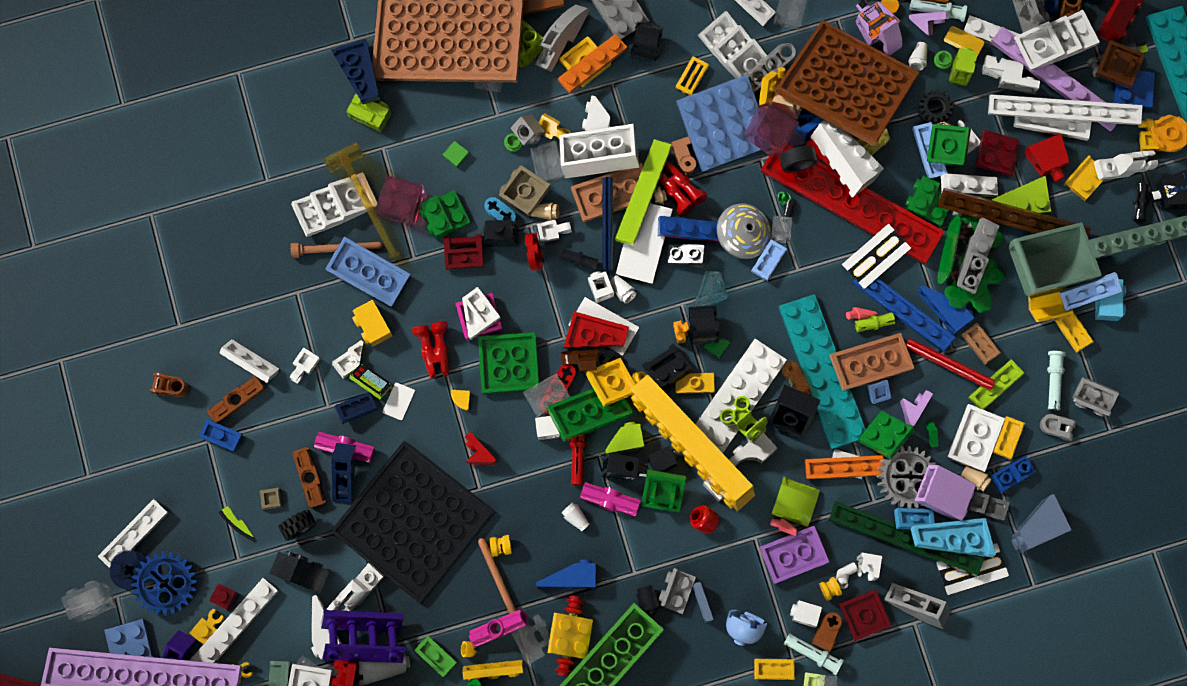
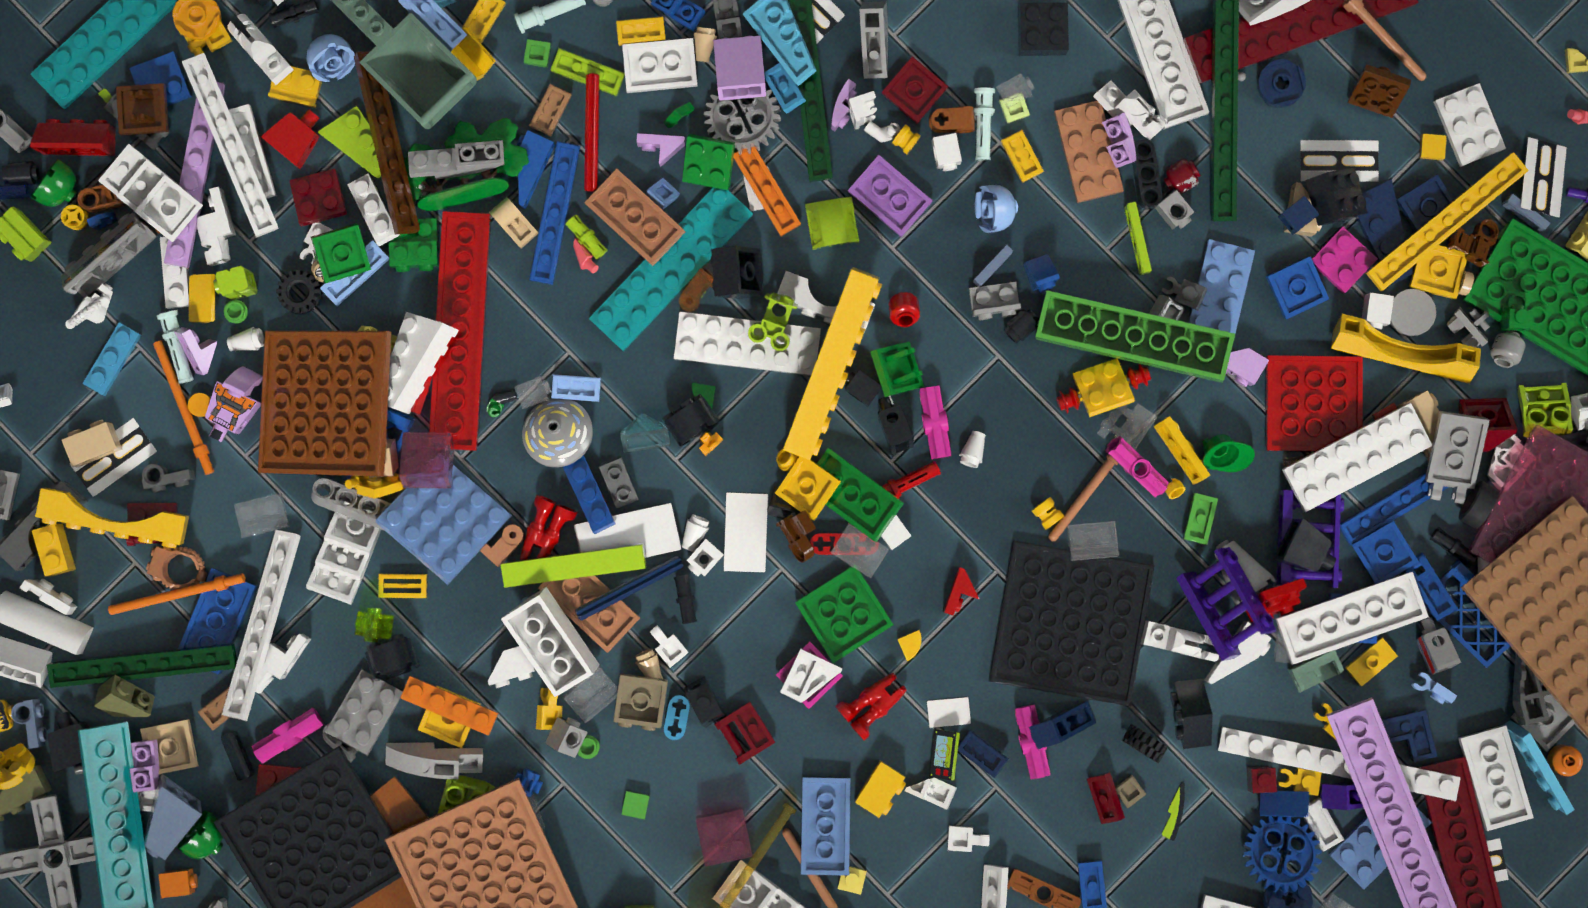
camera: 125 degrees left, 10 degrees up
(167, 624) = (1323, 825): none -> white tile
(196, 605) = (1284, 804): none -> blue slope
(275, 478) = (1105, 798): none -> dark red plate
(312, 490) = (1097, 751): dark orange piece -> none
(319, 273) = (853, 881): none -> light yellow plate
(444, 214) = (713, 778): green plate -> none
(462, 568) = (1093, 540): none -> clear plate
(511, 90) = (529, 781): none -> blue gear
(534, 253) = (705, 651): red plate -> none
(576, 576) = (1038, 416): blue slope -> none
(593, 332) = (759, 538): red wing -> none
(626, 439) = (861, 439): lime slope -> none
(659, 196) = (566, 547): tan plate -> none
(672, 371) = (761, 430): black plate -> none
(675, 42) = (373, 625): none -> clear neon green brick
(678, 634) = (1041, 273): none -> blue slope
(695, 383) = (758, 398): yellow plate -> none
(784, 526) = (865, 221): coral bar -> none
(798, 159) = (445, 411): black tyre -> none
(874, 548) = (840, 113): none -> lavender slope
(876, 256) = (510, 272): sticker -> none
(913, 276) = (513, 222): none -> tan plate
(1028, 356) = (537, 53): none -> bright green tile
(1095, 208) = (330, 57): none -> light blue cylinder

